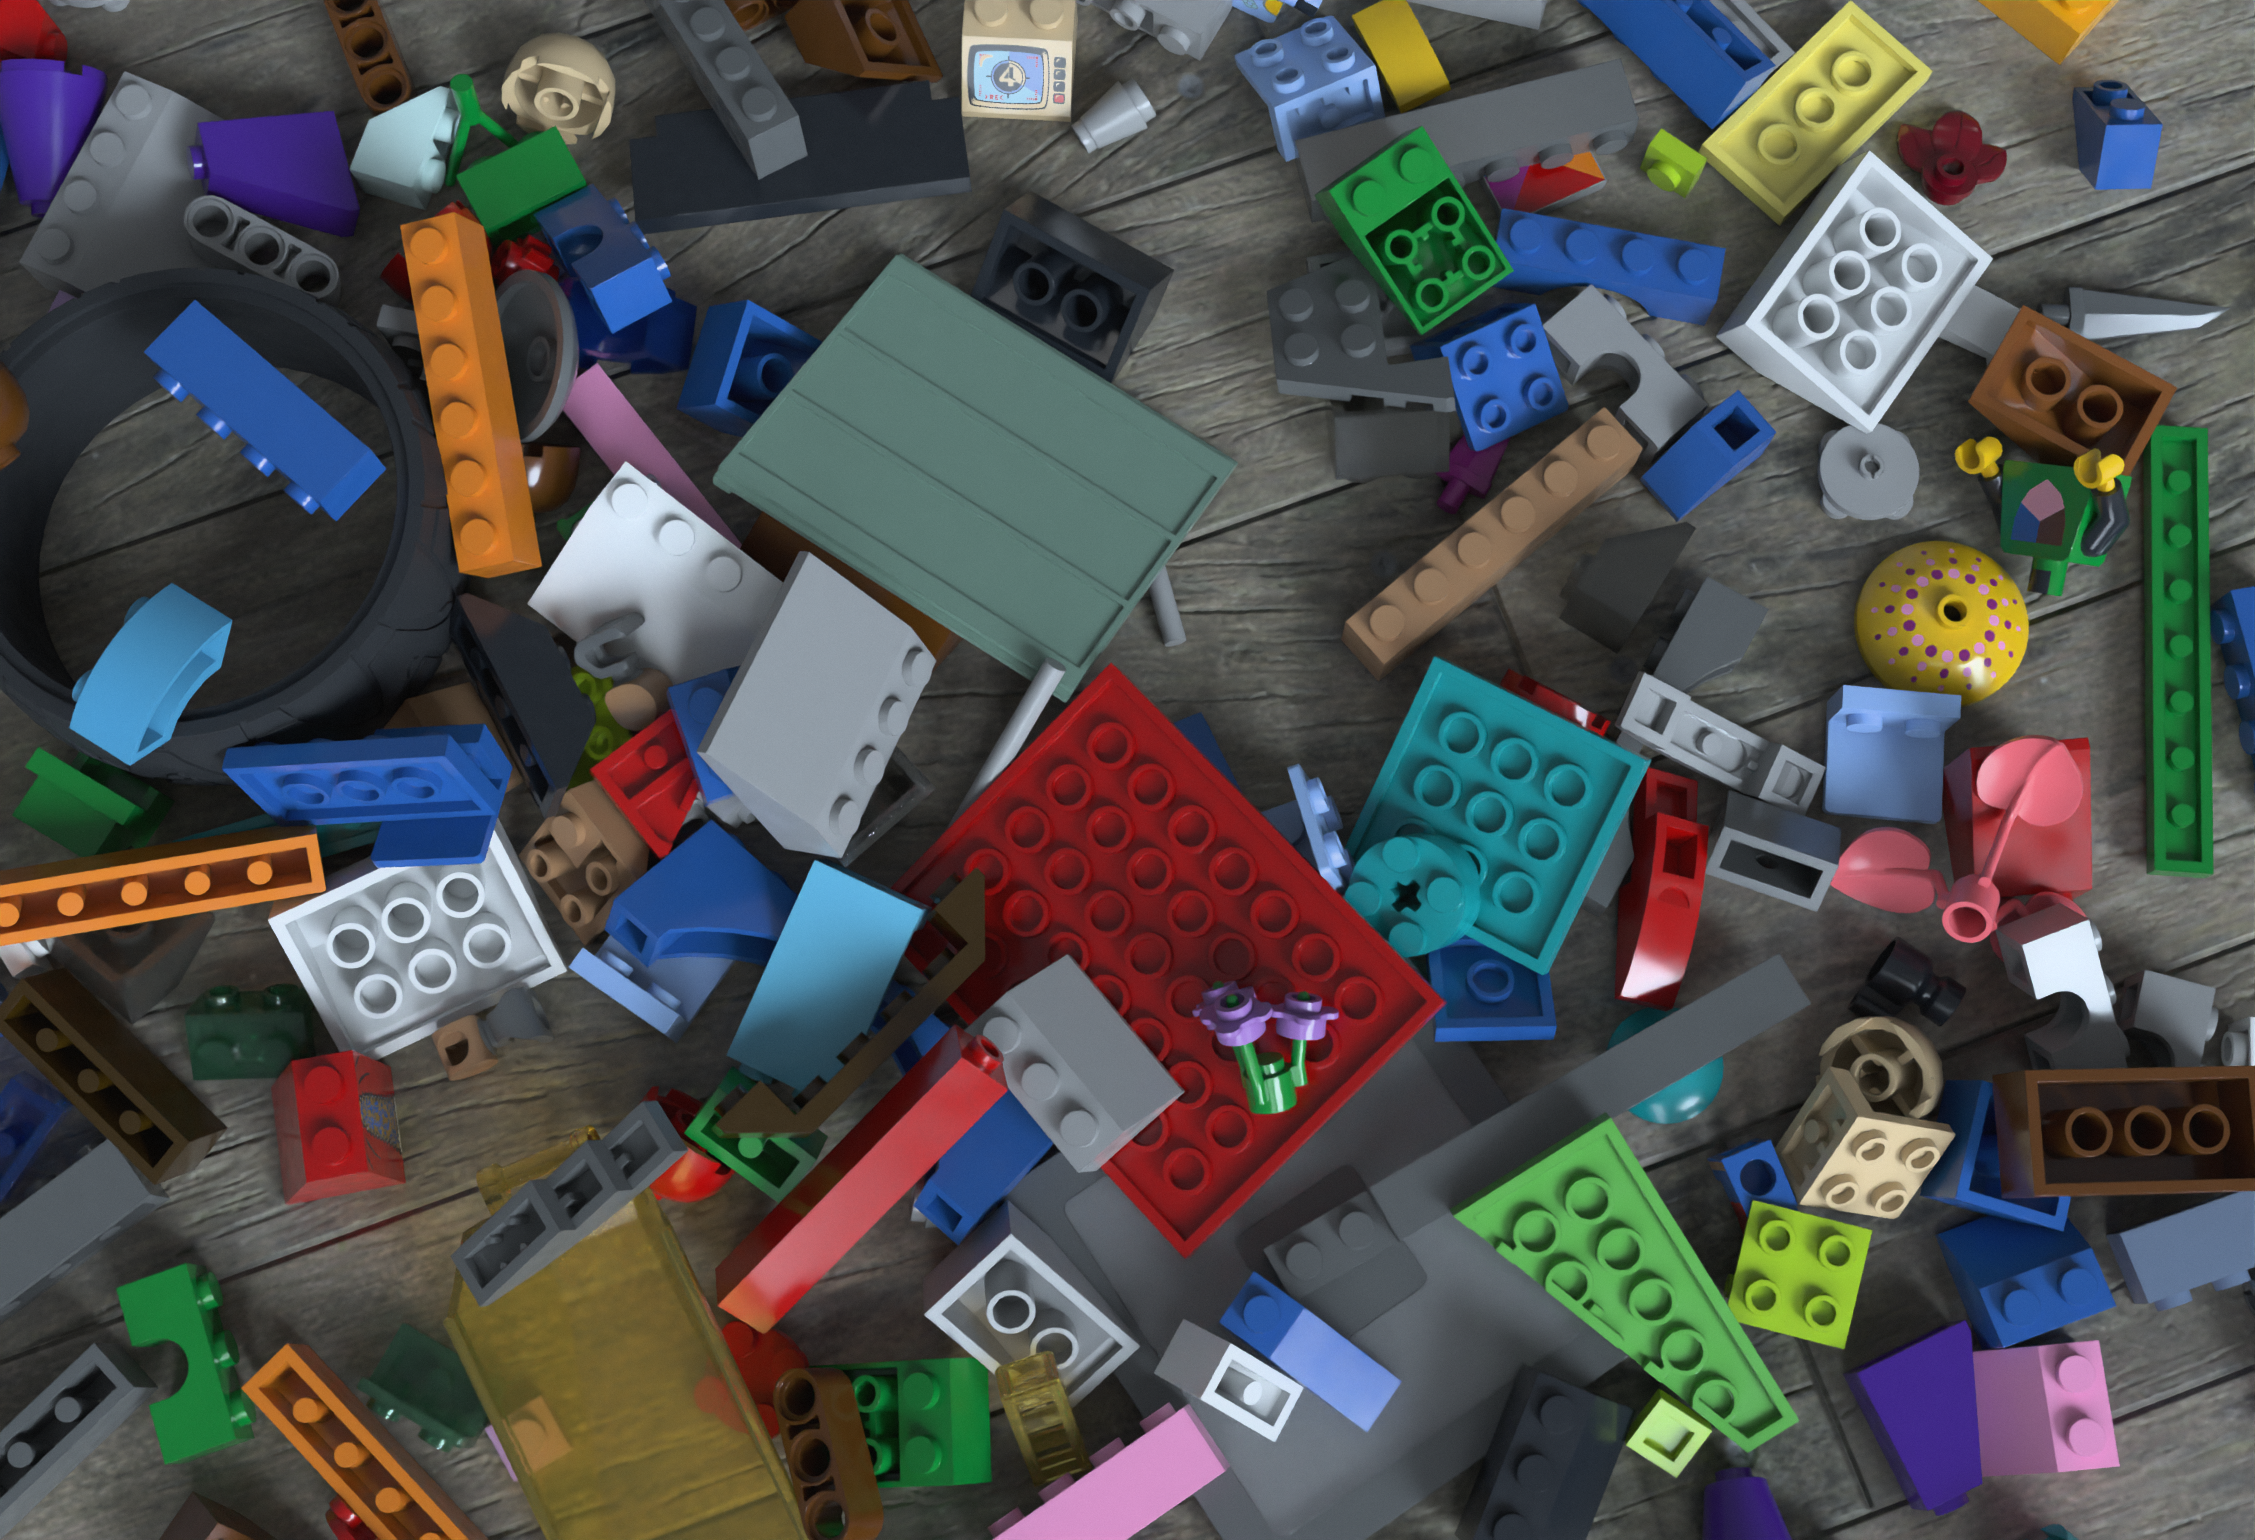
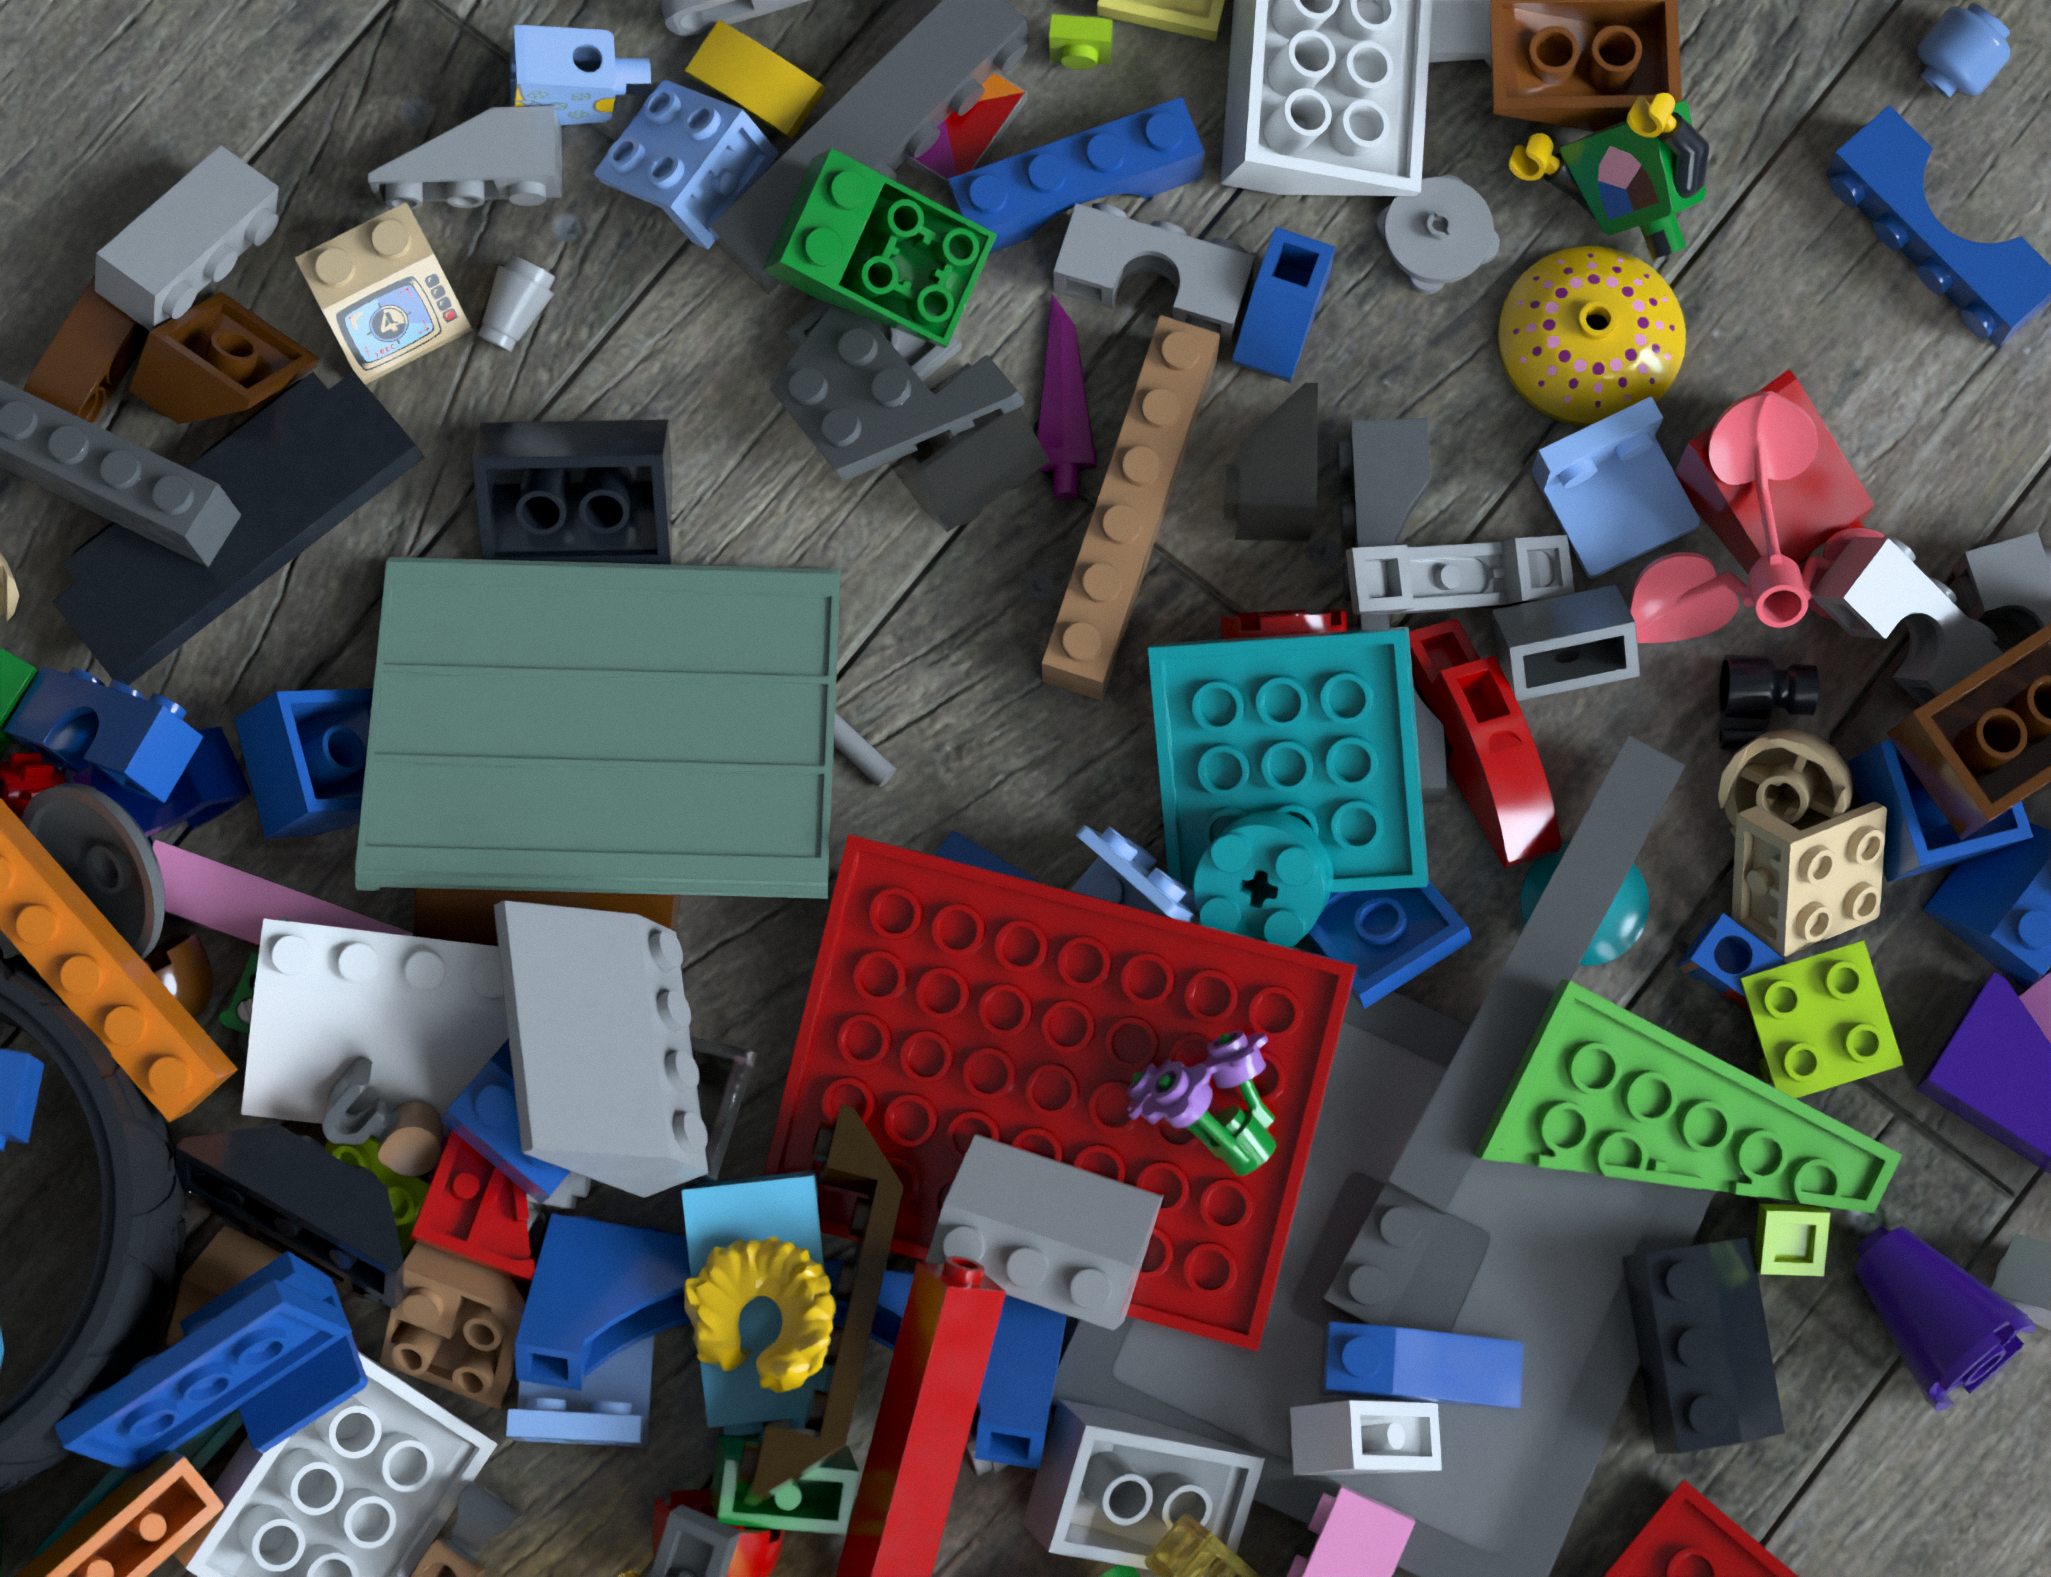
camera: 30 degrees left, 0 degrees up
(852, 980) = (756, 1270): none -> yellow piece
(1015, 731) = (795, 960): light grey bar -> none
(1498, 372) = (1038, 336): blue bracket -> none
(2177, 654) = (1822, 236): green plate -> none

